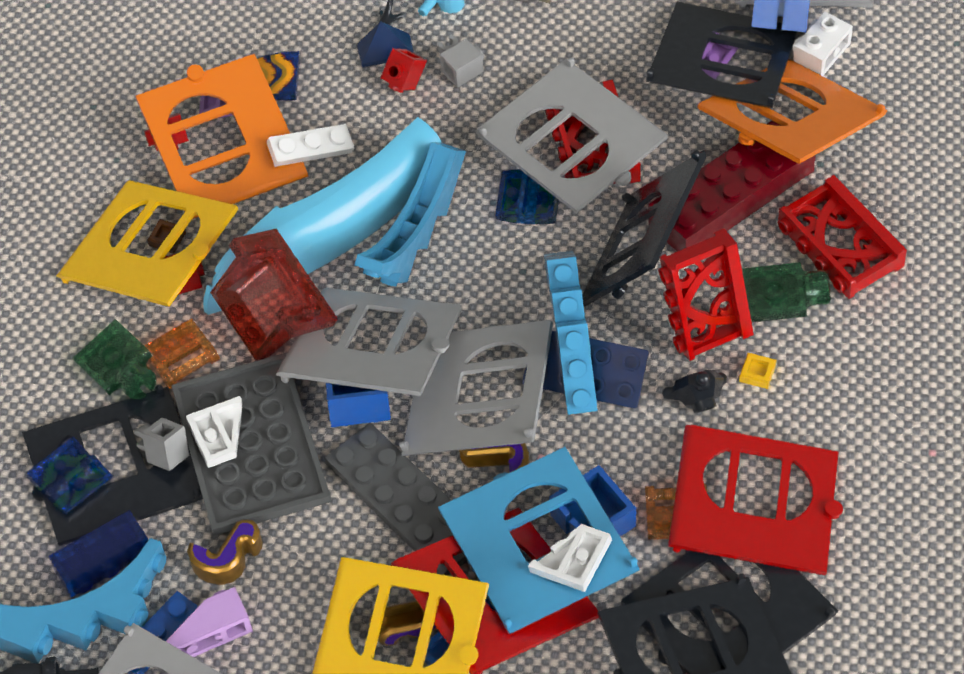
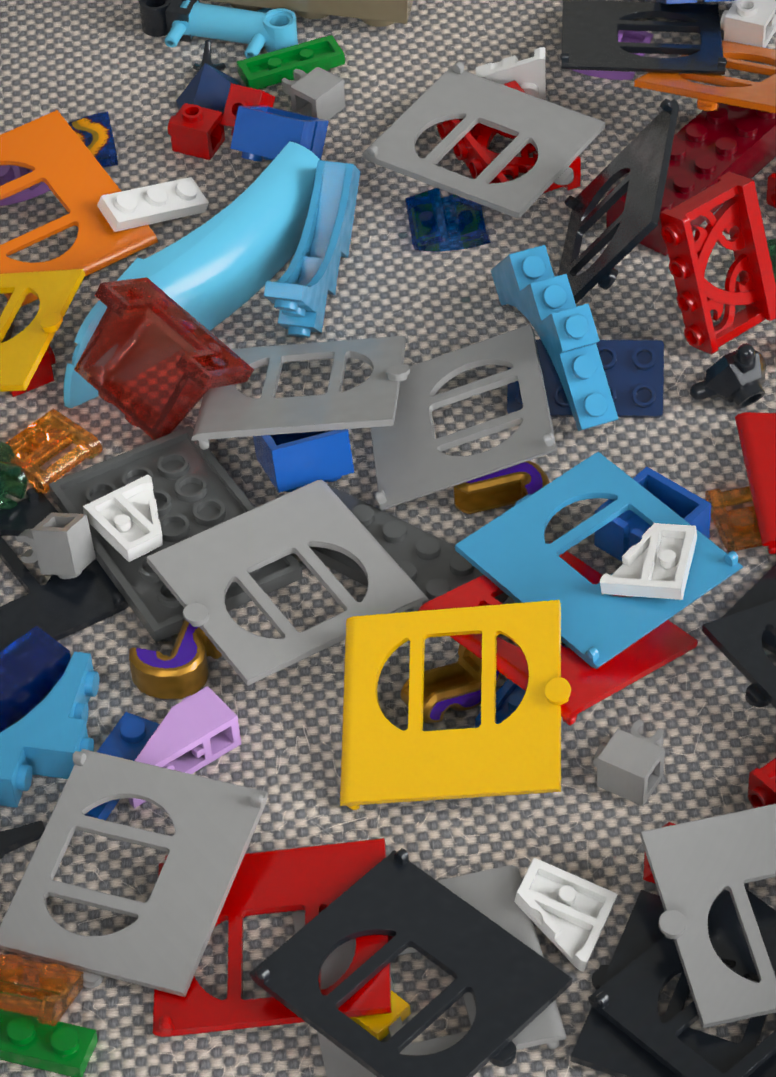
camera: 15 degrees left, 10 degrees down
(325, 460) = (311, 516): none -> light grey door
(362, 79) = (196, 131): none -> red brick
(419, 96) = (265, 131): none -> blue piece
(457, 23) = (271, 67): none -> green plate
(625, 78) = (527, 73): none -> white wing

